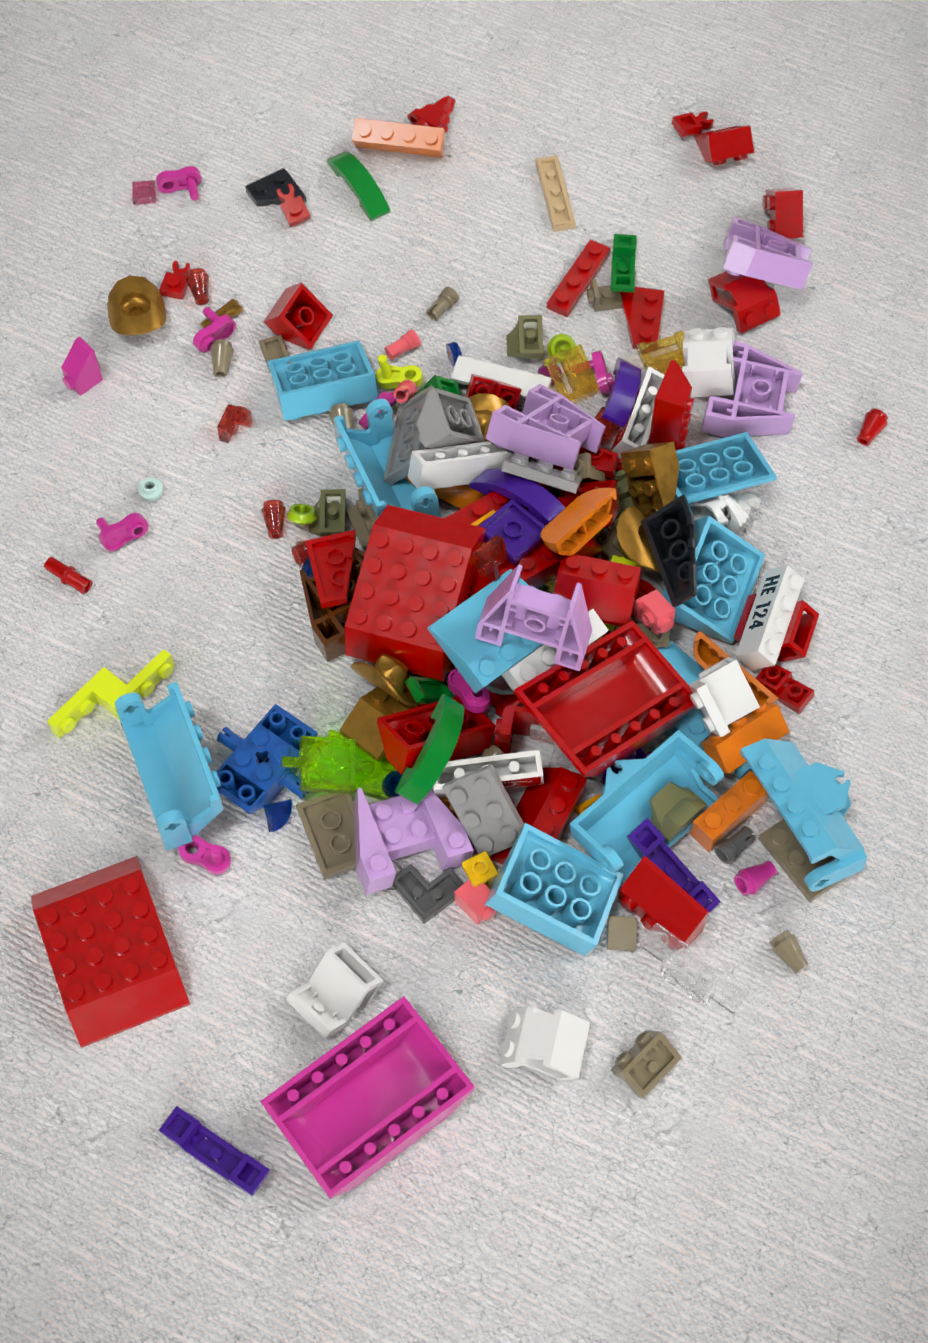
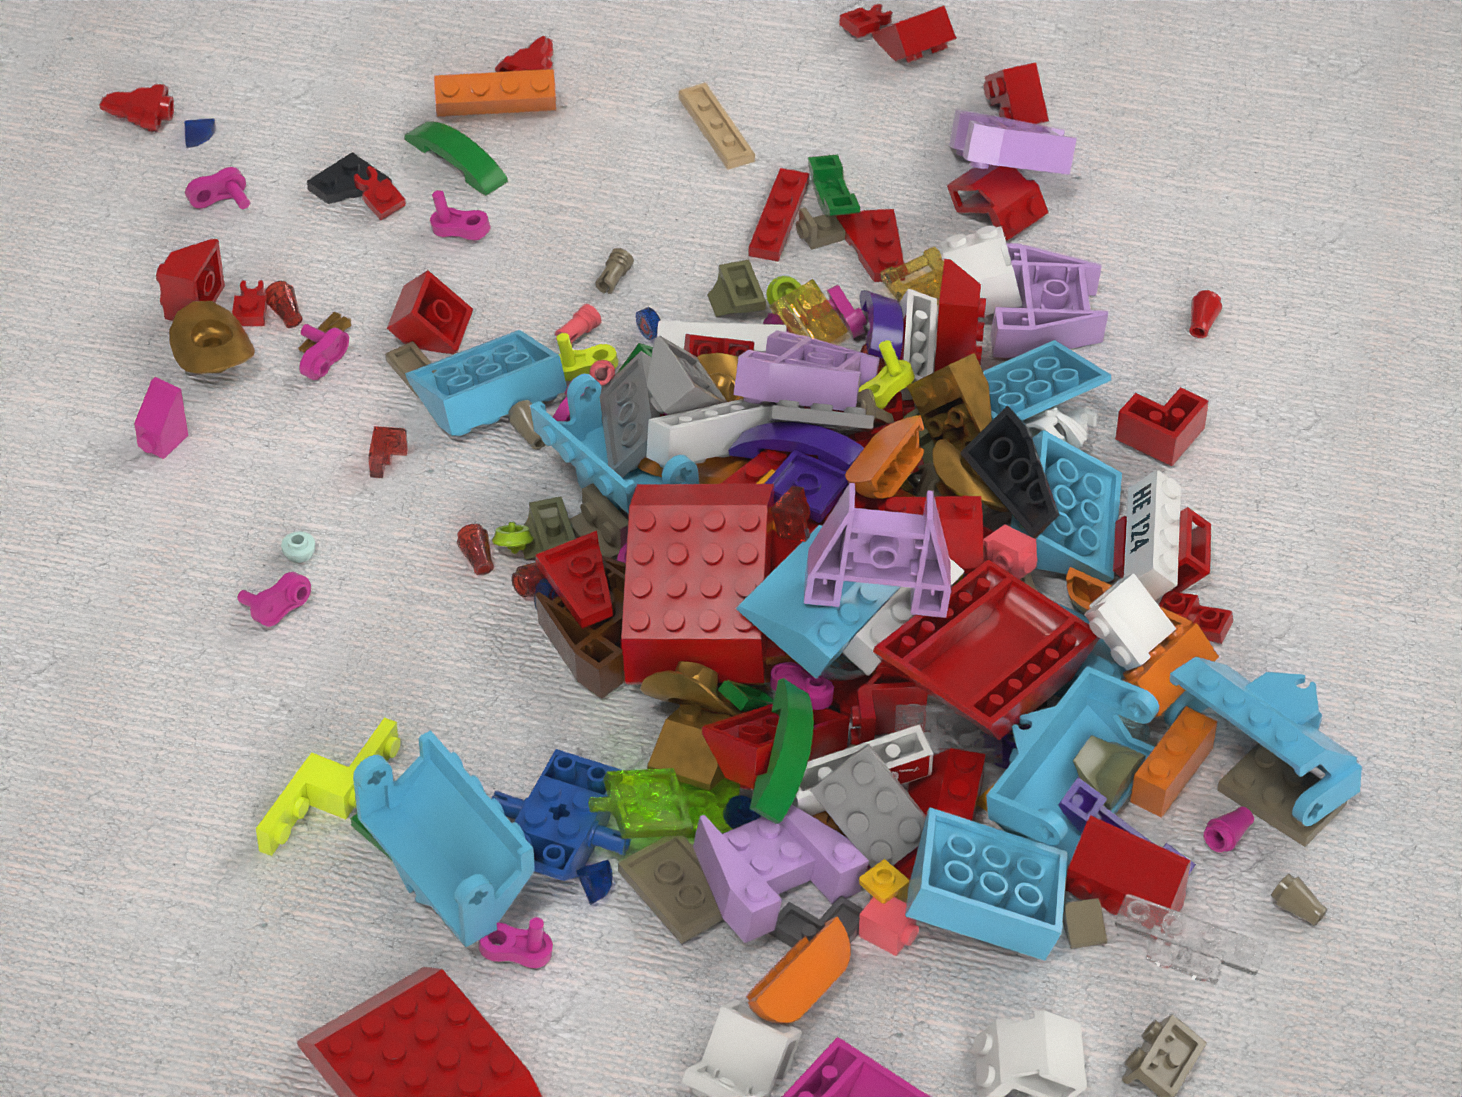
camera: 15 degrees left, 15 degrees down
(68, 575) = (221, 663): red axle -> none
(136, 254) = (190, 276): none -> red slope
(144, 192) = (171, 211): clear pink tile -> none
(148, 102) = (142, 106): none -> red rock
(182, 129) = (198, 131): none -> clear blue tile
(221, 357) = (342, 377): dark tan cone -> none
(339, 240) = (455, 222): none -> dark pink piece
(395, 934) = (802, 975): none -> orange brick
(611, 444) = (891, 378): none -> neon yellow piece
(730, 848) = (1188, 802): dark grey pin -> none
(809, 524) = (1160, 429): none -> red brick

